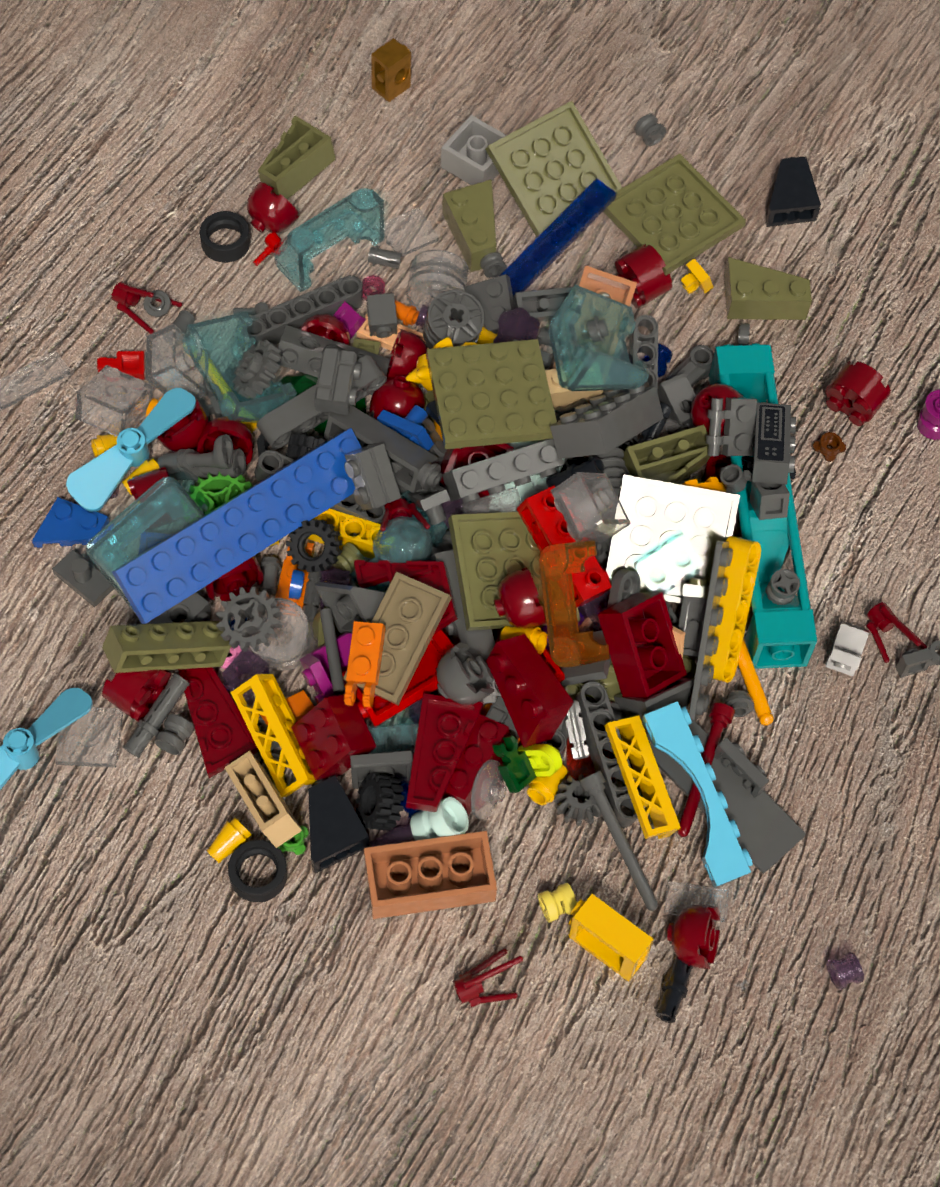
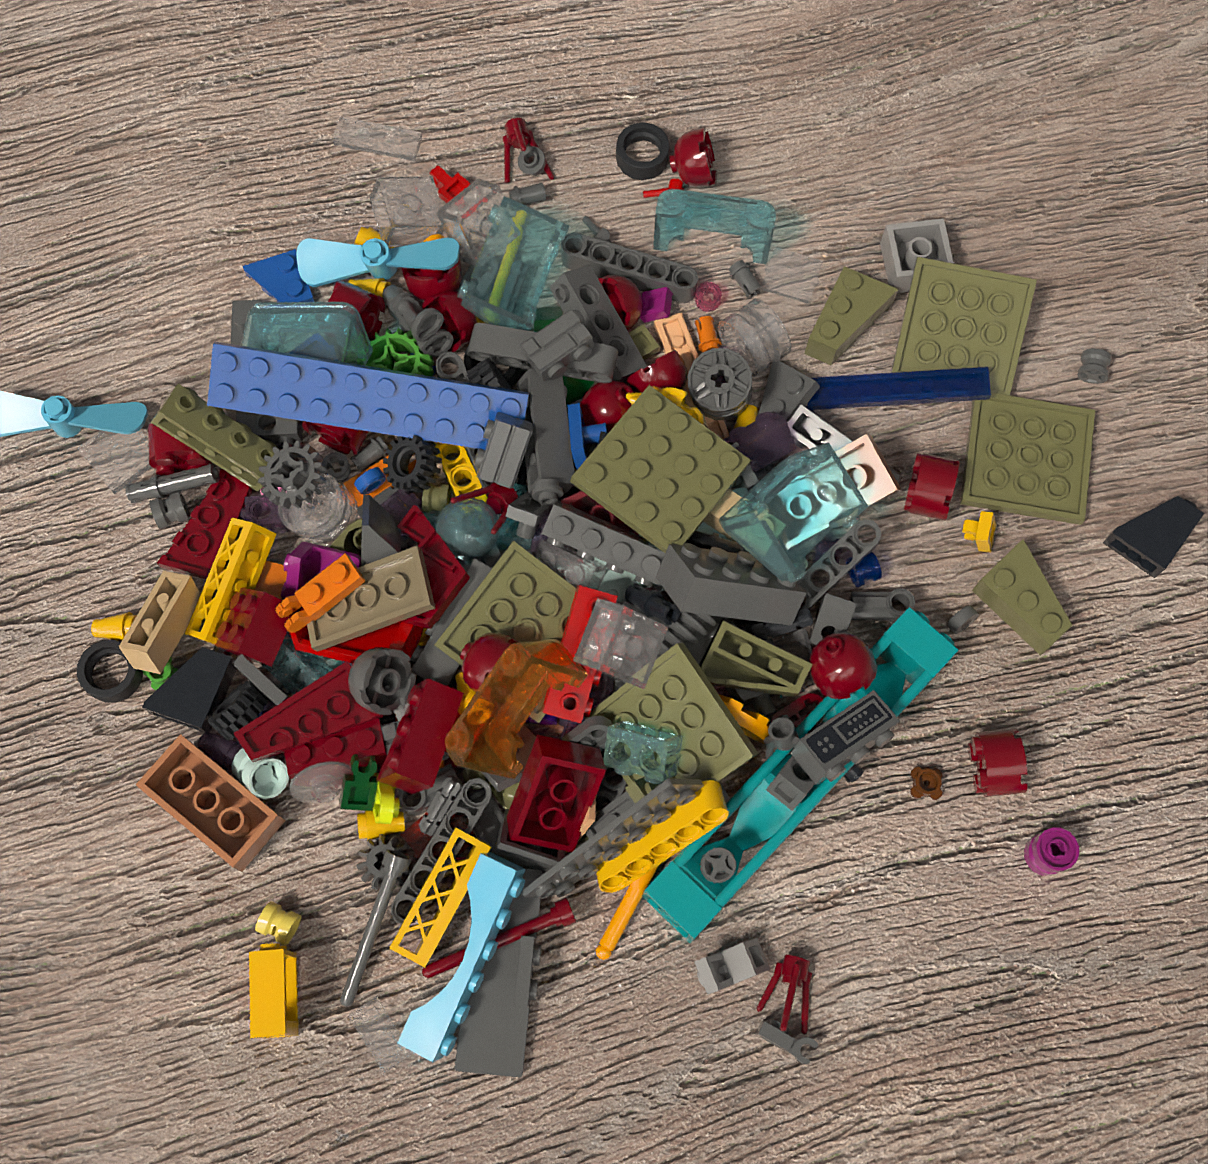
camera: 50 degrees right, 10 degrees up
(256, 369) = (525, 280): dark grey gear -> none
(297, 159) = (762, 135): olive wedge -> none
(332, 651) = (331, 552): dark grey bar -> none
(381, 315) = (680, 324): dark grey brick -> none
(391, 69) = (926, 122): pearl gold brick -> none
(469, 984) = (147, 917): dark red plant -> none
(493, 265) = (824, 363): dark grey bush -> none
(597, 329) = (813, 498): dark grey plate -> none
(674, 991) = (282, 1084): black pin -> none
(695, 935) = (339, 1063): dark red cylinder -> none
(738, 426) = (836, 694): dark grey plate -> none
(740, 702) = (593, 917): dark grey plate -> none

